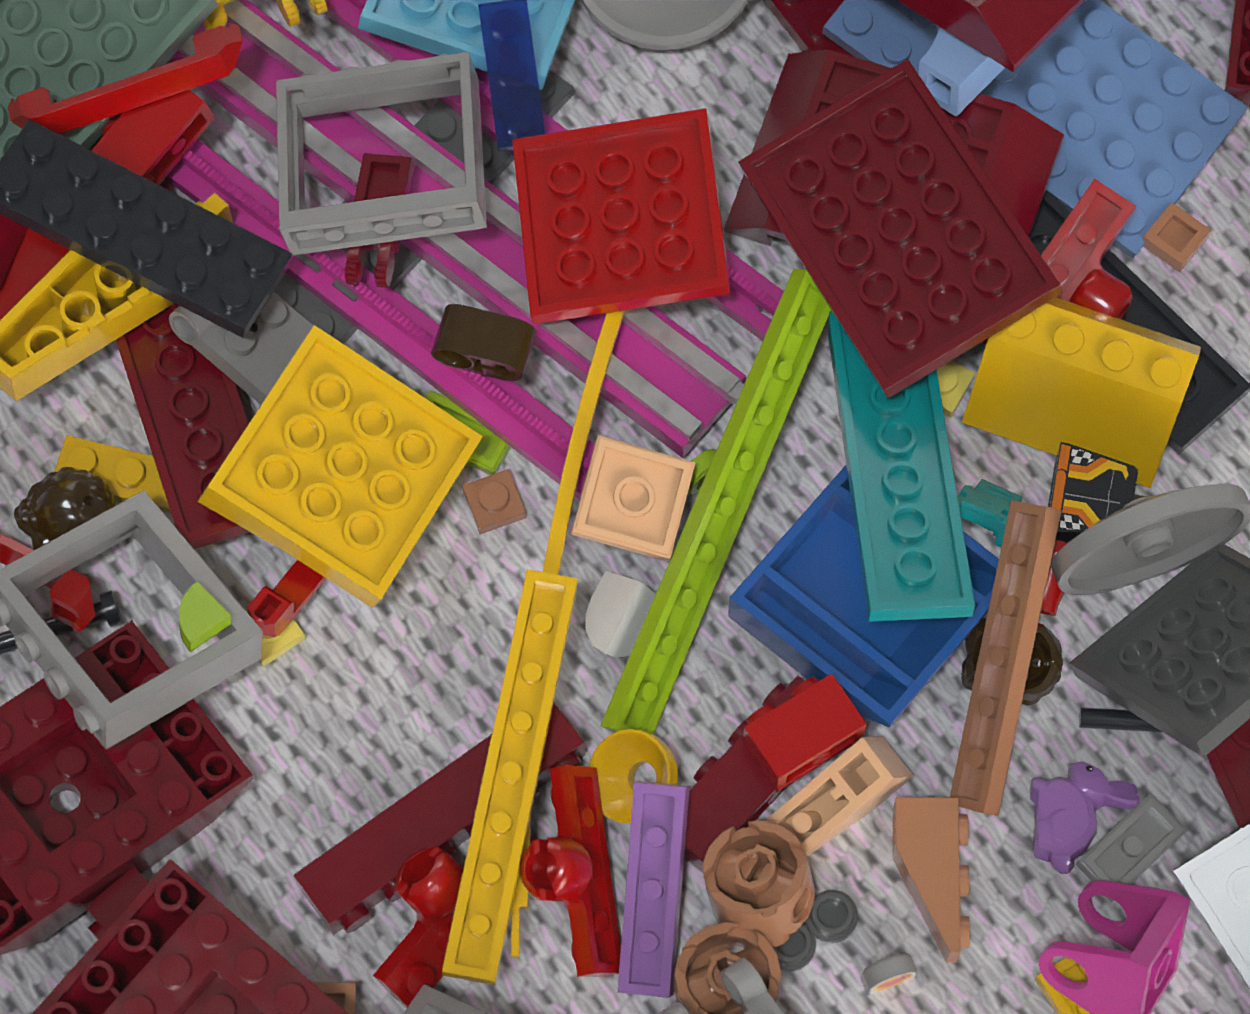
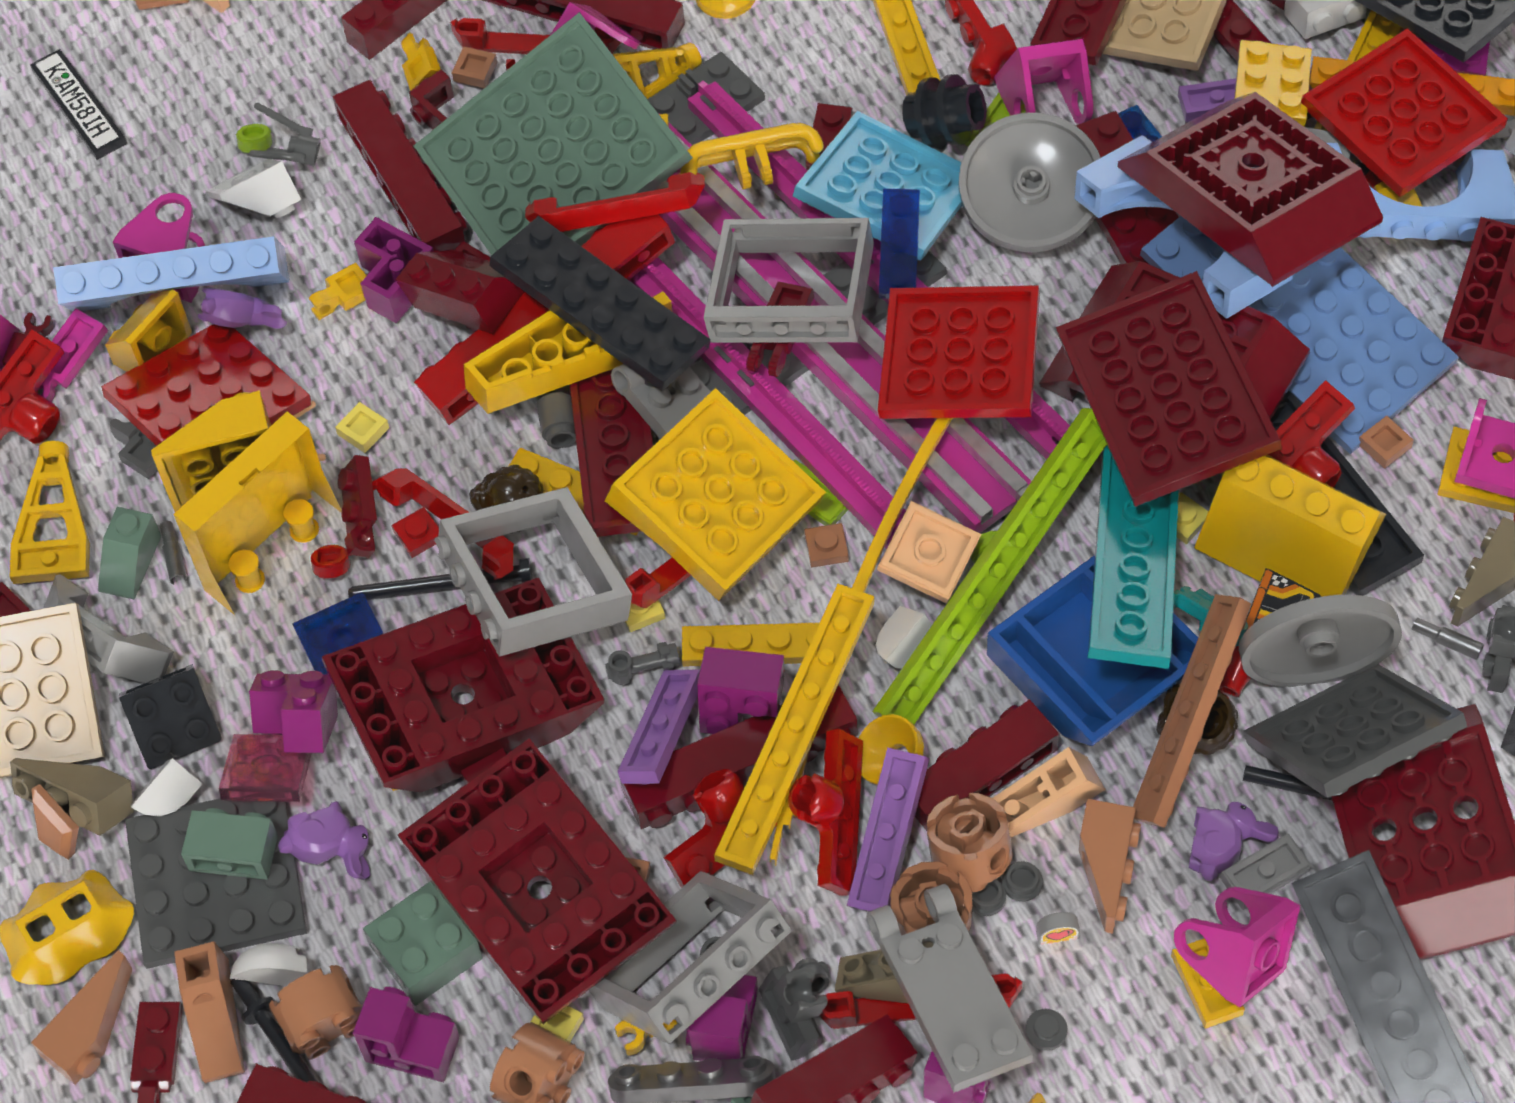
camera: 15 degrees right, 10 degrees down
(107, 388) = (556, 419): none -> dark grey brick
(200, 617) = (588, 575): lime tile -> none
(264, 719) = (622, 665): none -> dark grey bar
(334, 800) = (660, 727): none -> medium lavender plate
(422, 728) = (737, 685): none -> magenta brick
(424, 656) = (780, 639): none -> yellow plate
(483, 342) = (839, 424): dark brown beam -> none
(803, 731) = (1023, 735): red brick -> none

